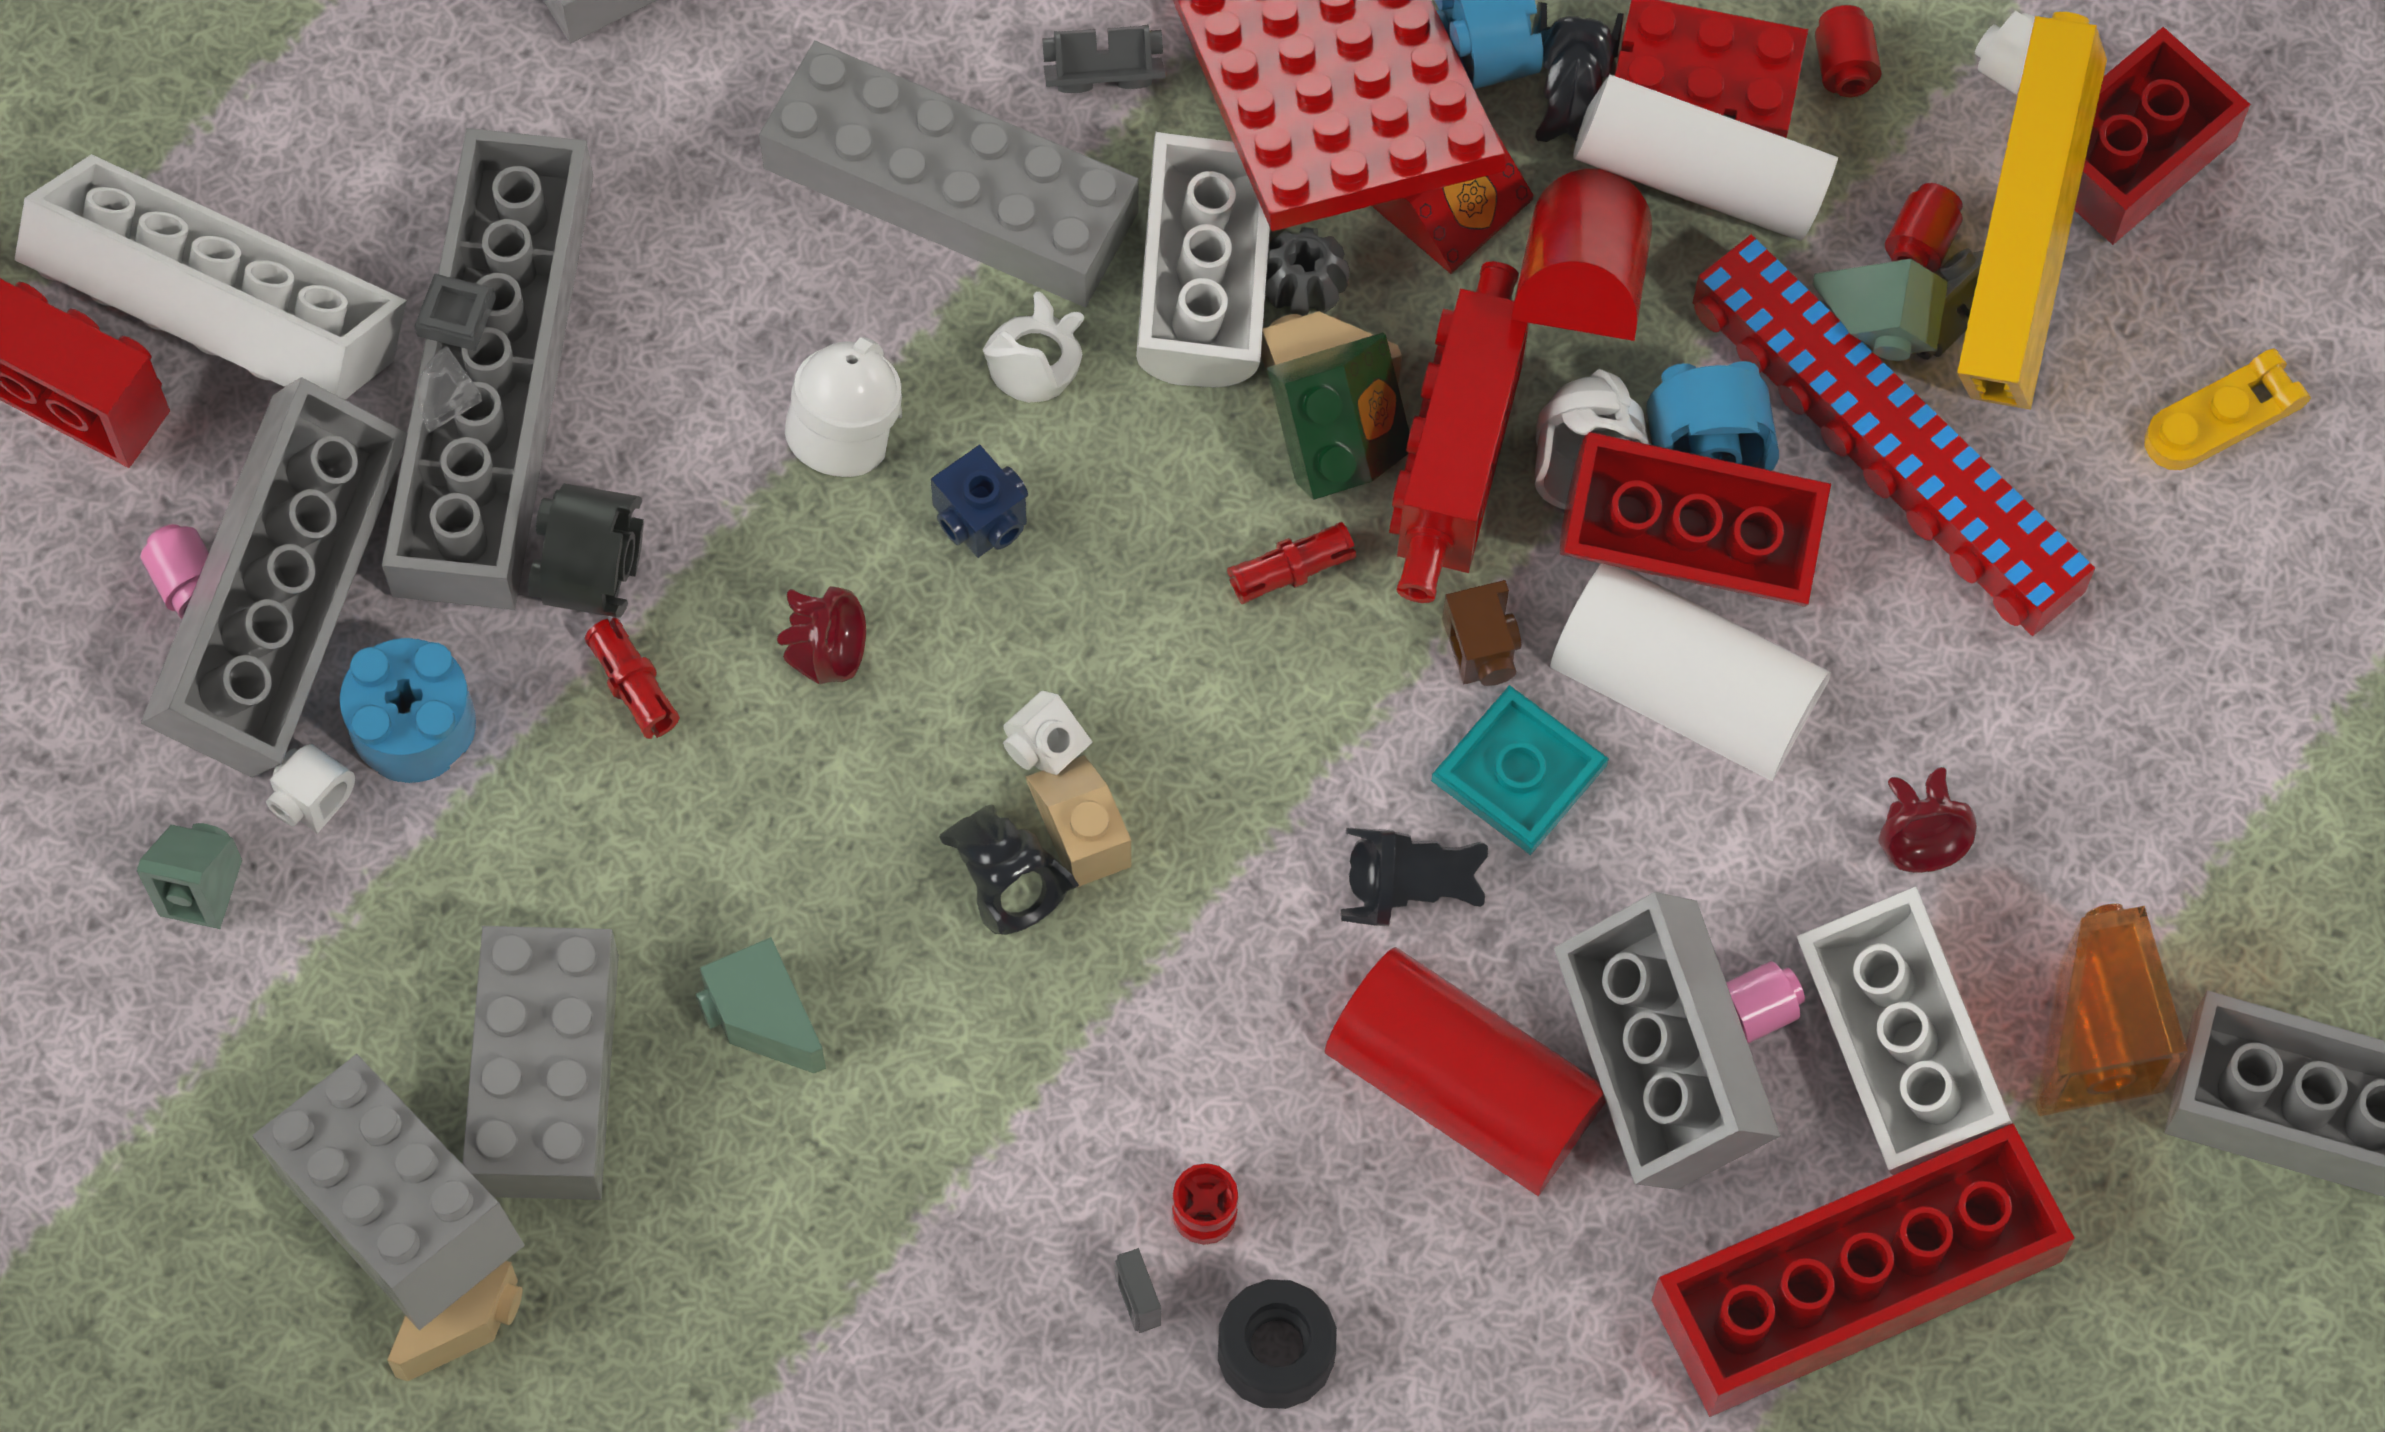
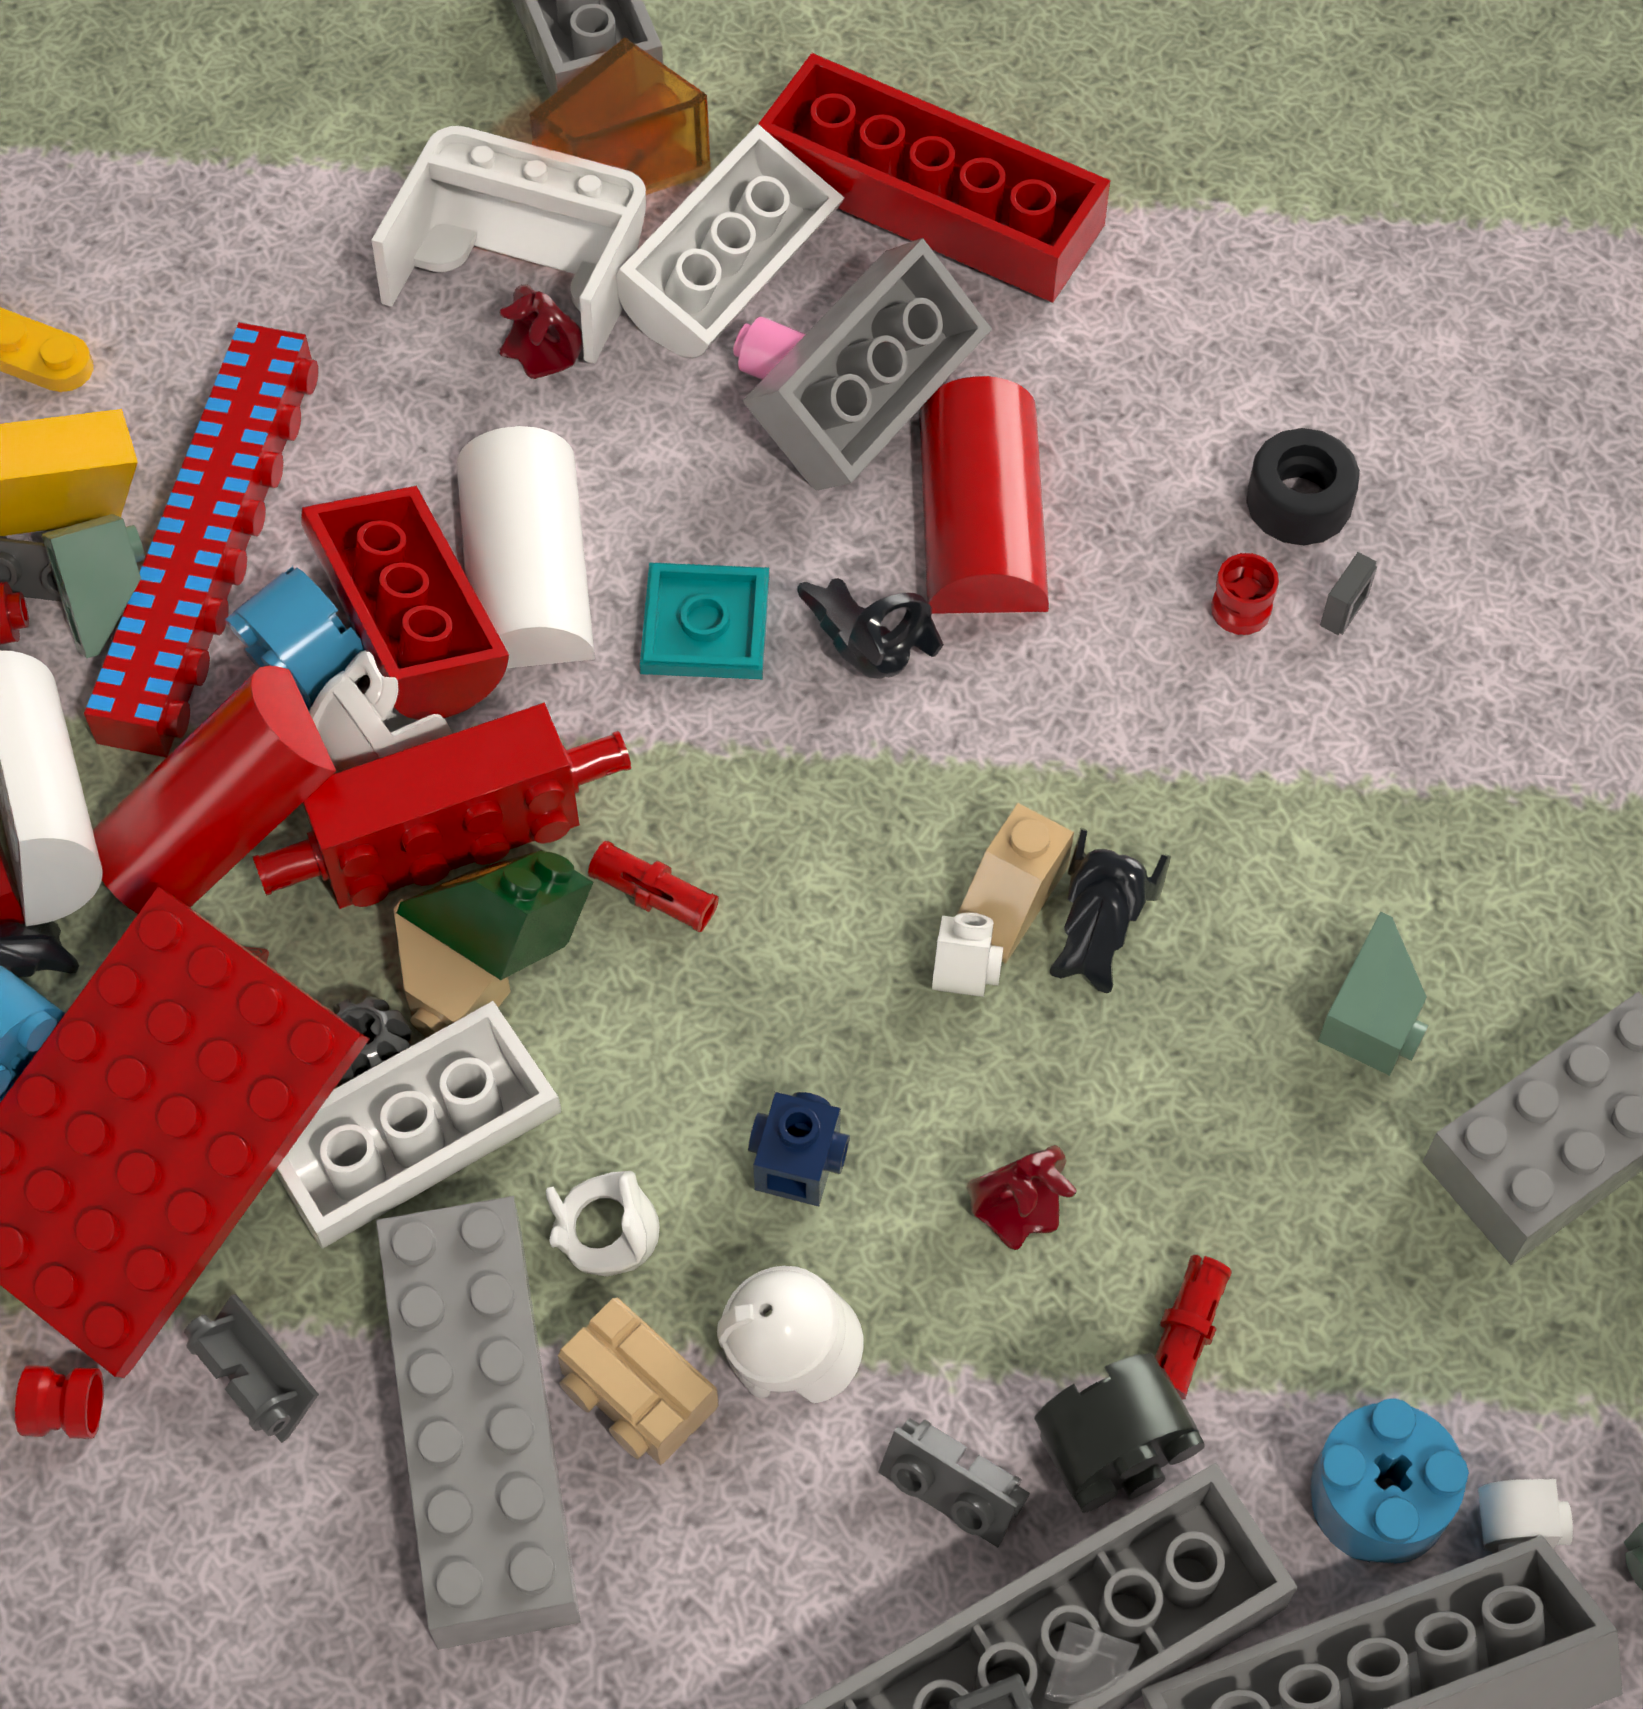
camera: 125 degrees left, 5 degrees down
(634, 454) = (926, 1466): none -> dark grey hinge
(894, 290) = (636, 1382): none -> tan brick
(1482, 633) = (612, 700): reddish brown brick -> none
(2124, 834) = (517, 203): none -> white windscreen

